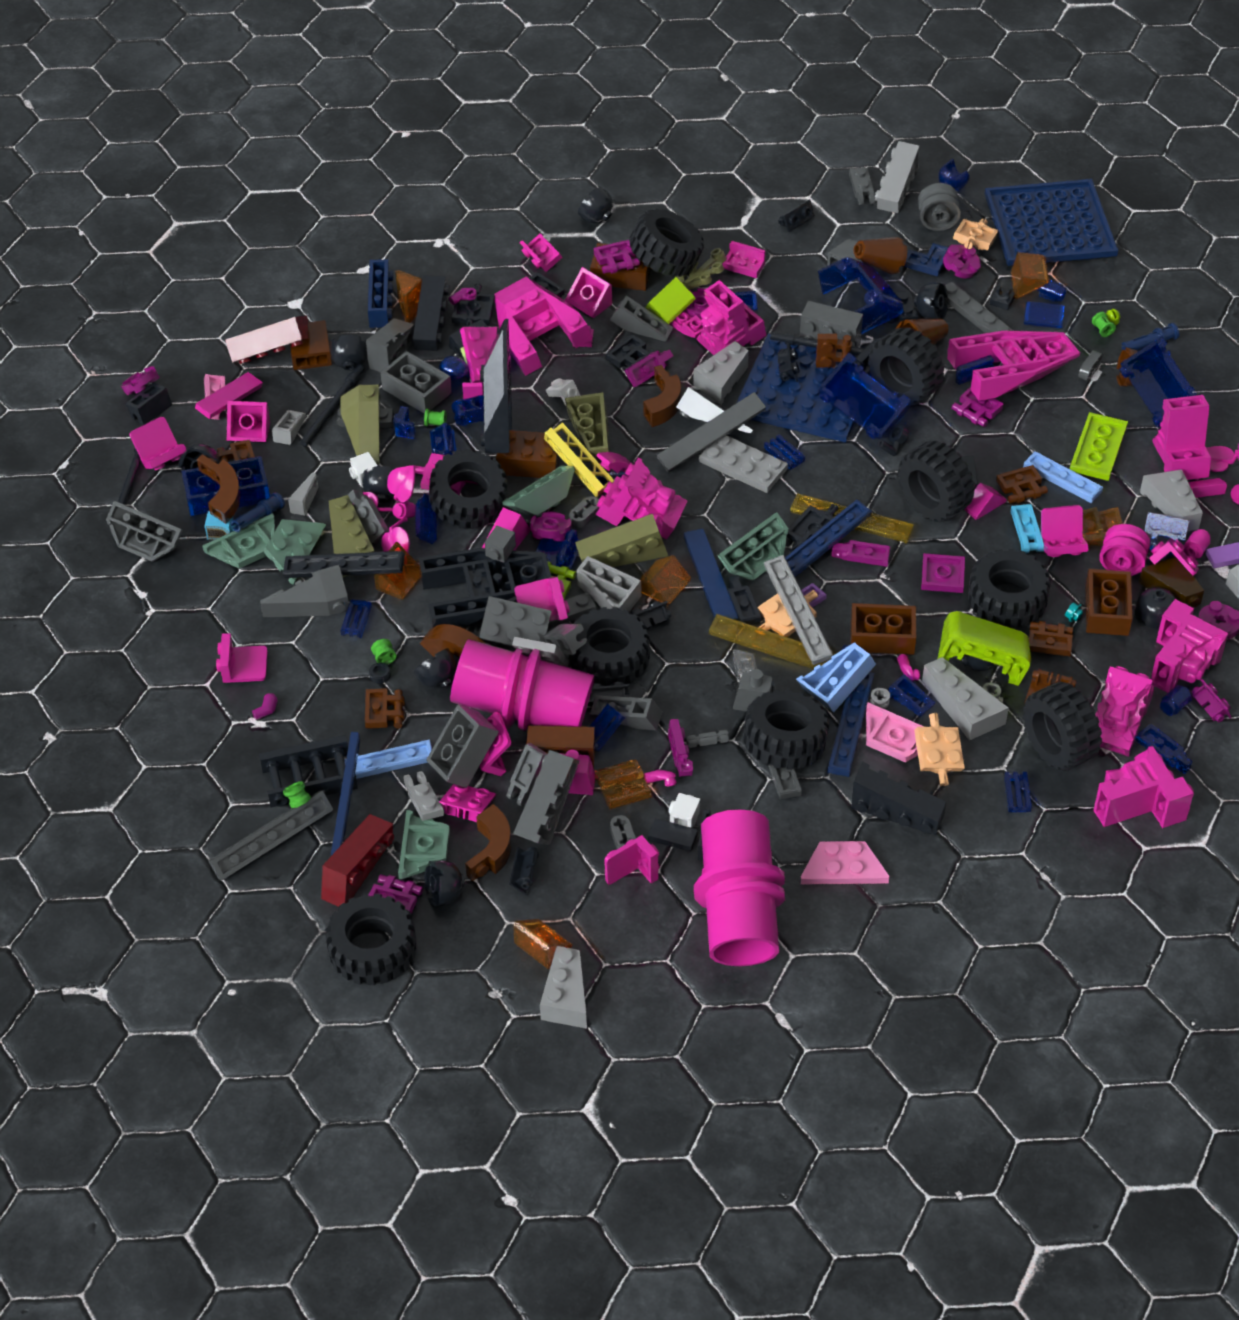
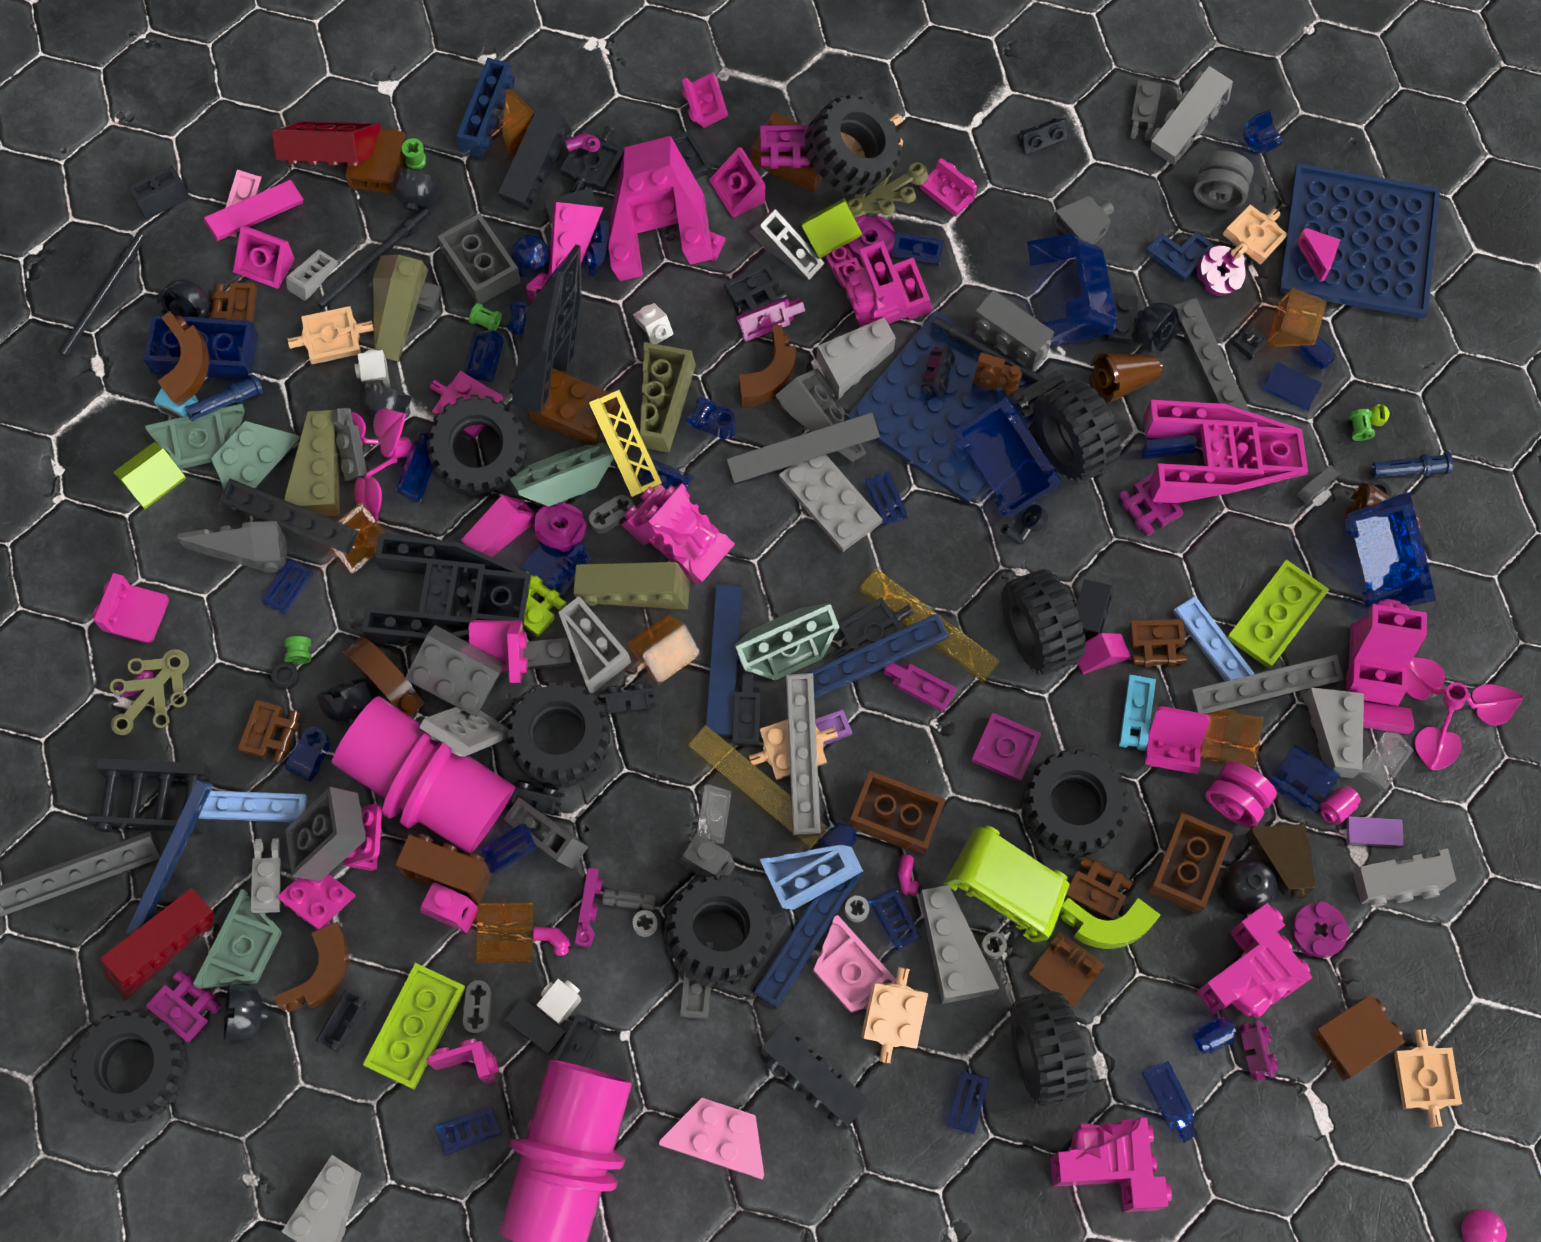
camera: 15 degrees right, 20 degrees up
(137, 382) = (158, 155): magenta plate -> none
(141, 532) = (83, 383): dark grey wedge -> none
(156, 444) = (143, 260): dark pink bracket -> none
(218, 576) = (150, 475): none -> slope
(280, 704) = (152, 688): none -> olive plant
(297, 794) = (117, 834): bright green wheel -> none
(303, 496) = (290, 387): light grey slope -> none
(321, 457) = (330, 335): none -> light nougat plate
(334, 332) = (414, 154): none -> bright green bush
(389, 343) = (469, 189): dark grey wedge -> none
(402, 423) = (442, 312): clear blue bracket -> none
(422, 711) = (306, 757): none -> clear blue piece
(500, 544) = (477, 550): dark grey brick -> none
(526, 773) = (389, 893): dark grey hinge -> none
(538, 940) = (326, 1128): clear orange slope -> none
(547, 798) = (392, 947): dark grey wedge -> none
(565, 637) = (501, 715): dark grey hinge -> none
(580, 858) = (414, 1026): none -> lime plate
(597, 207) = (798, 51): black cylinder -> none
(613, 461) = (672, 456): dark pink slope -> none
(637, 435) = (708, 417): none -> clear blue piece
(640, 923) = (442, 1129): none -> clear blue slope
(725, 754) = (649, 916): none -> light grey bush
(883, 253) = (1121, 235): reddish brown cone -> none
(1025, 230) = (1318, 250): none -> dark pink slope
(1071, 660) = (1110, 933): none -> lime arch
(1074, 612) = (1144, 859): teal plate -> none
(1111, 485) = (1266, 685): none -> dark grey plate
(1123, 708) = (1137, 1036): dark pink brick -> none
(1177, 549) = (1304, 816): dark pink bracket -> none
(1216, 511) = (1386, 759): none -> clear slope

